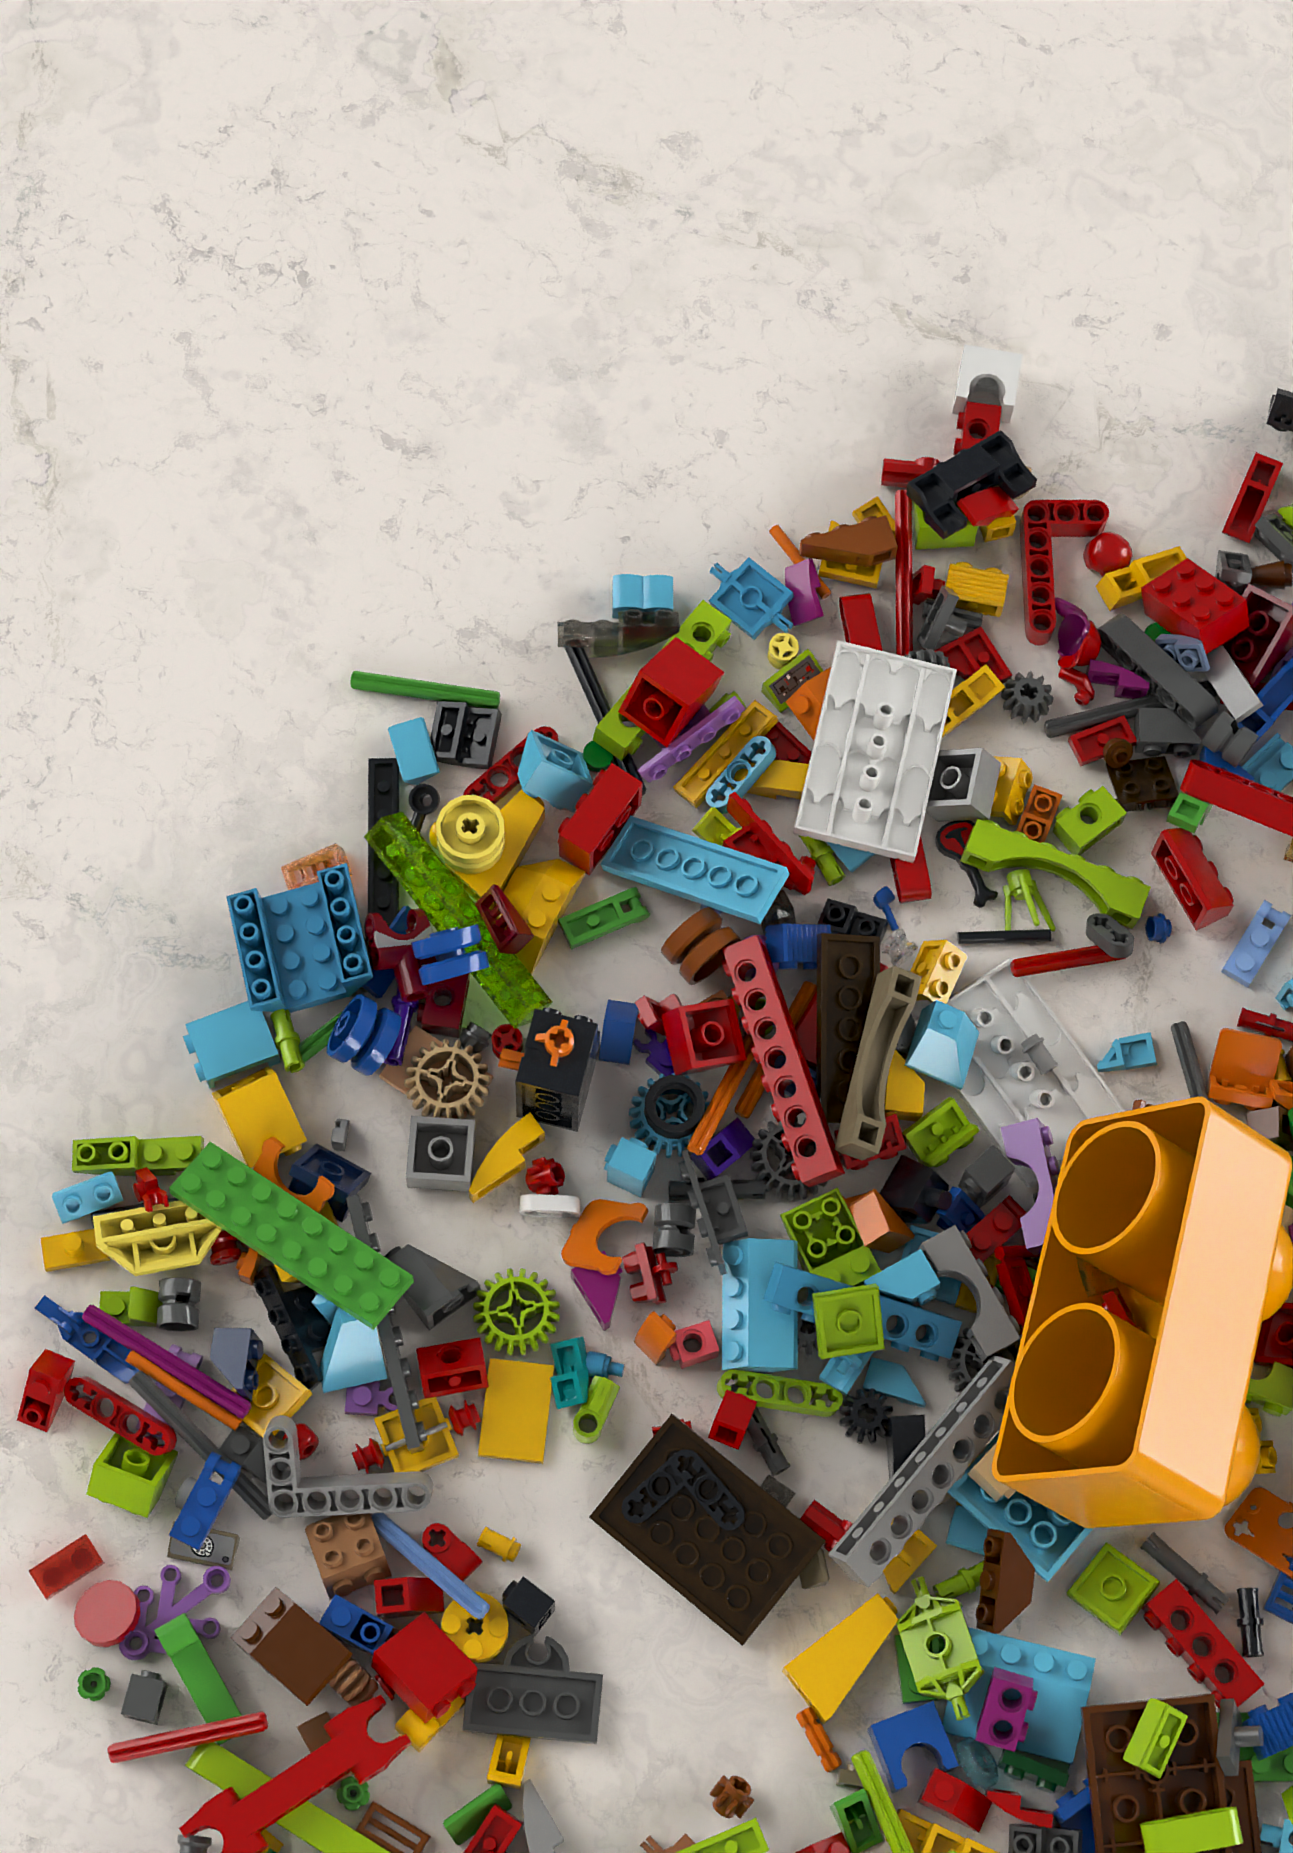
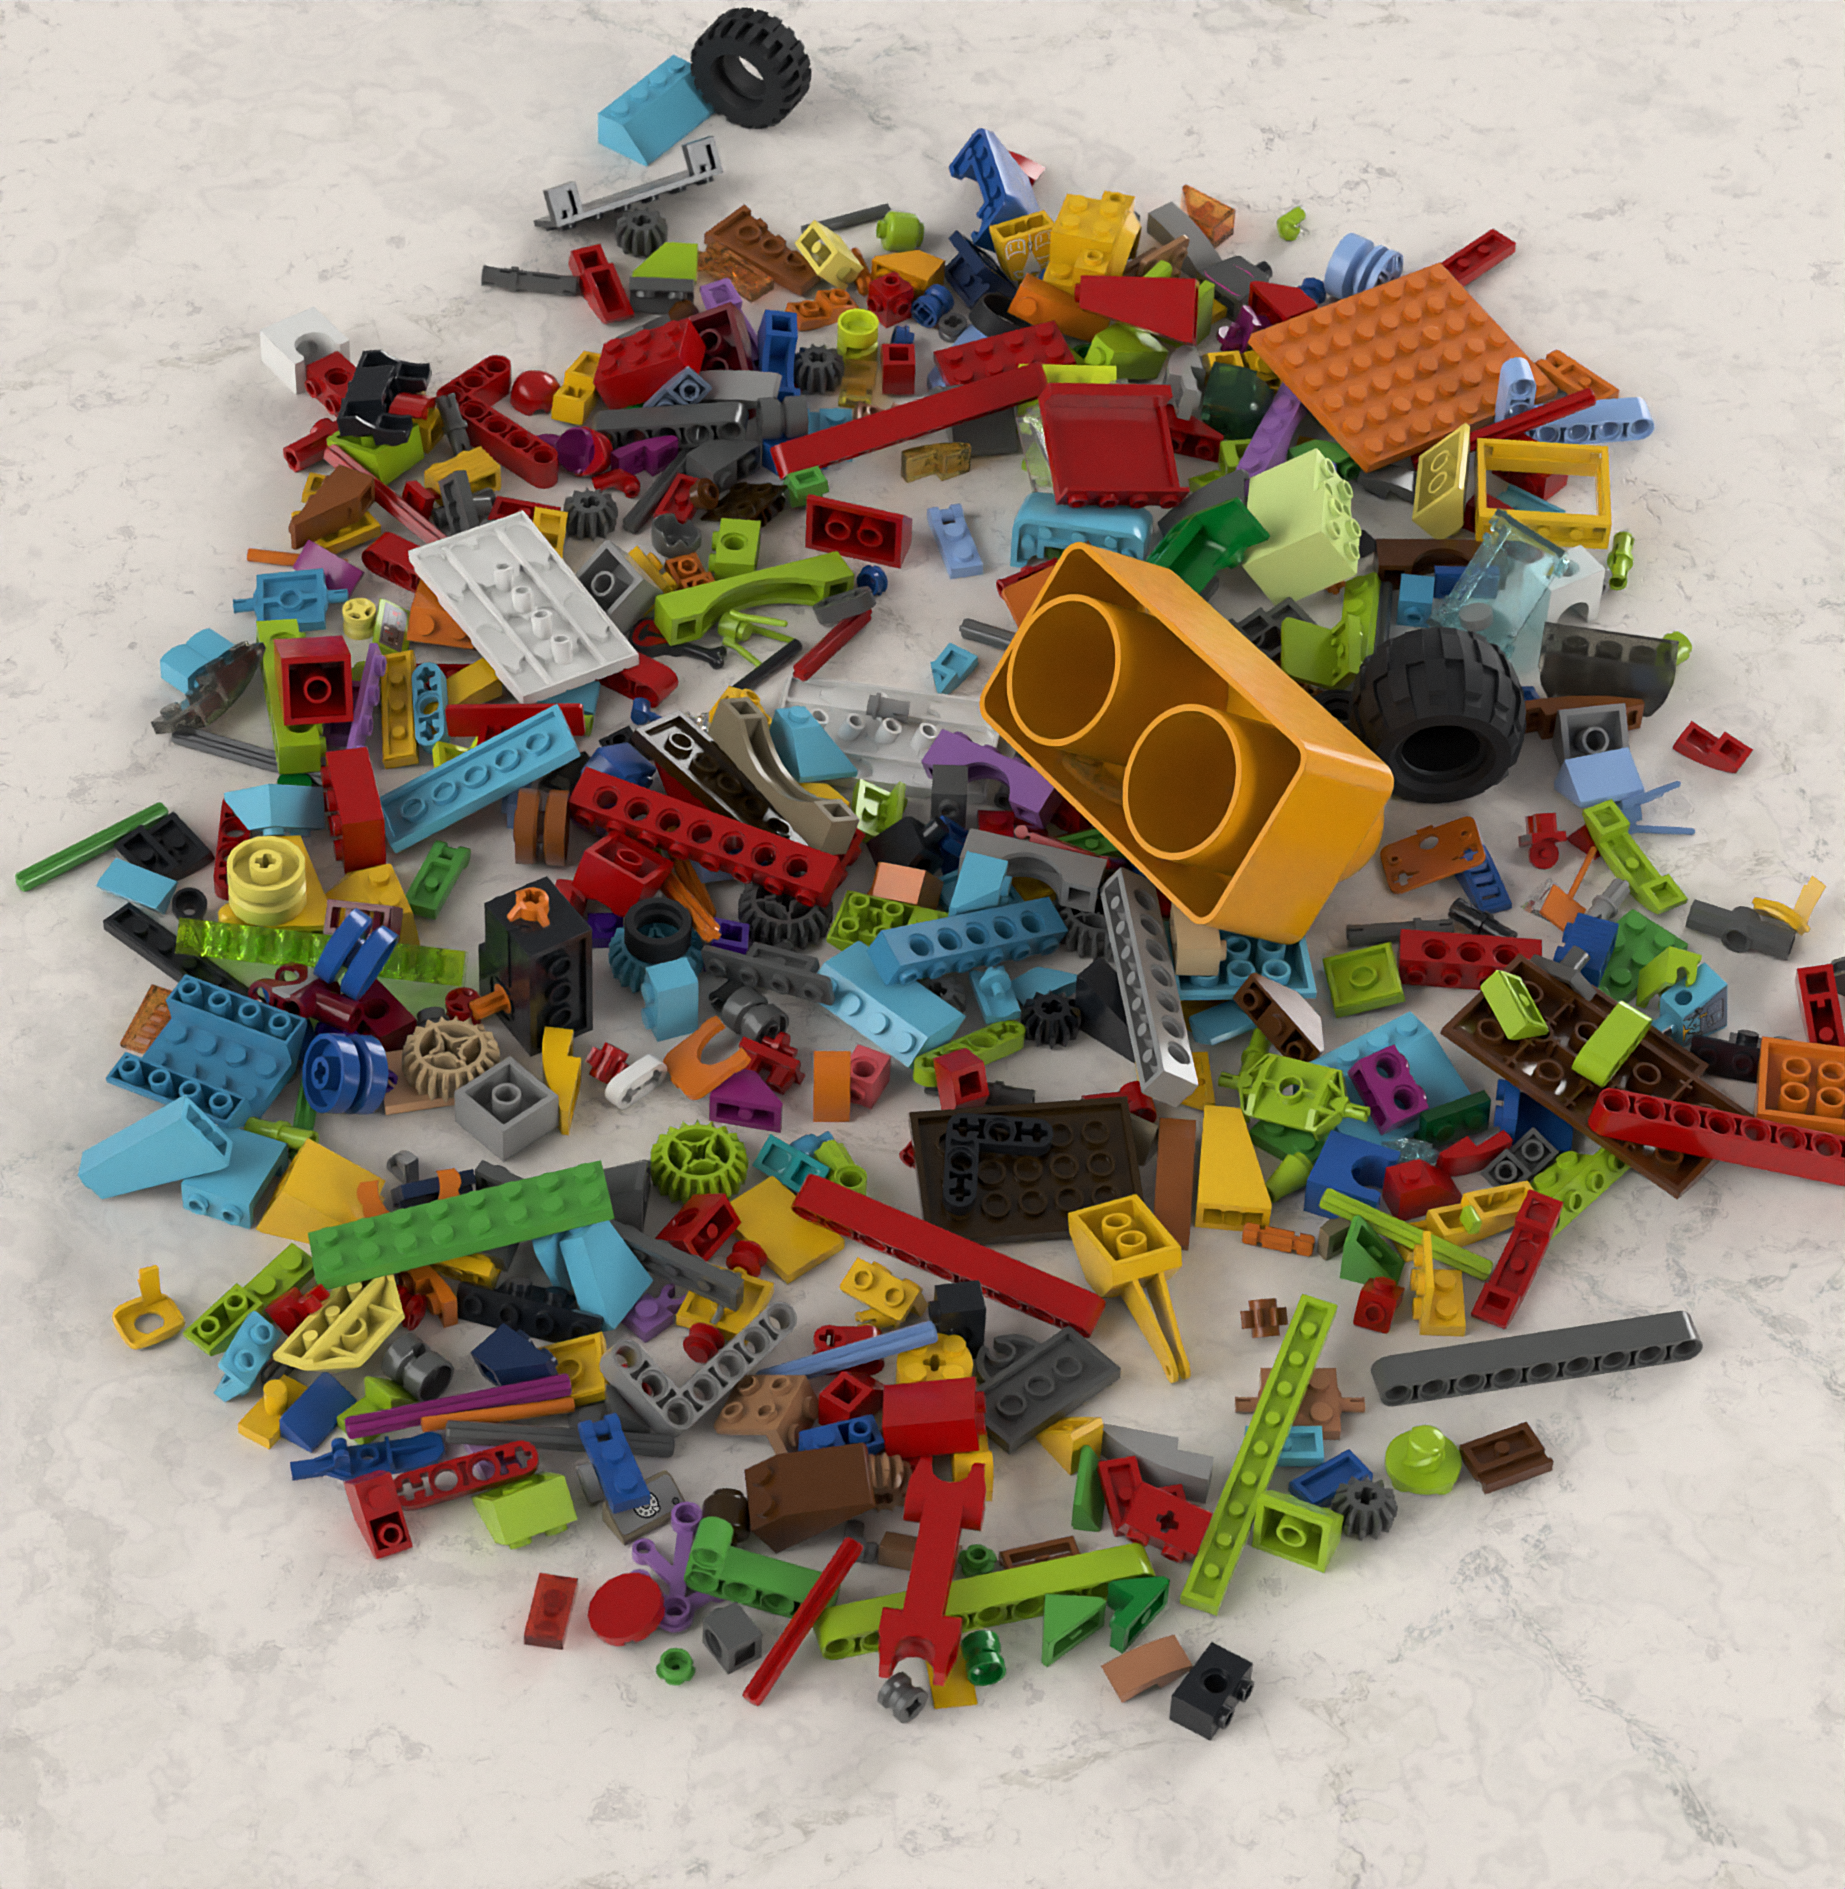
camera: 45 degrees left, 25 degrees down
(80, 1087) = (150, 1302): none -> yellow piece
(92, 1276) = (315, 1412): none -> blue slope
(189, 990) = (156, 1150): none -> medium azure slope
(235, 1605) = (732, 1507): none -> dark brown head
(289, 1712) = (855, 1529): none -> dark grey arm
(516, 1531) = (882, 1291): none -> yellow bracket
(583, 1547) = (947, 1255): none -> red beam
(687, 1668) = (1129, 1250): none -> yellow slope
(796, 1629) = (1175, 1177): none -> dark orange slope
(848, 1321) = (970, 941): lime tile -> none
(878, 1698) = (1289, 1176): none -> lime cone
(1011, 542) = (454, 426): none -> dark grey pin
(1062, 769) = (673, 538): none -> dark grey hair
(1201, 440) = (528, 280): none -> dark grey pin

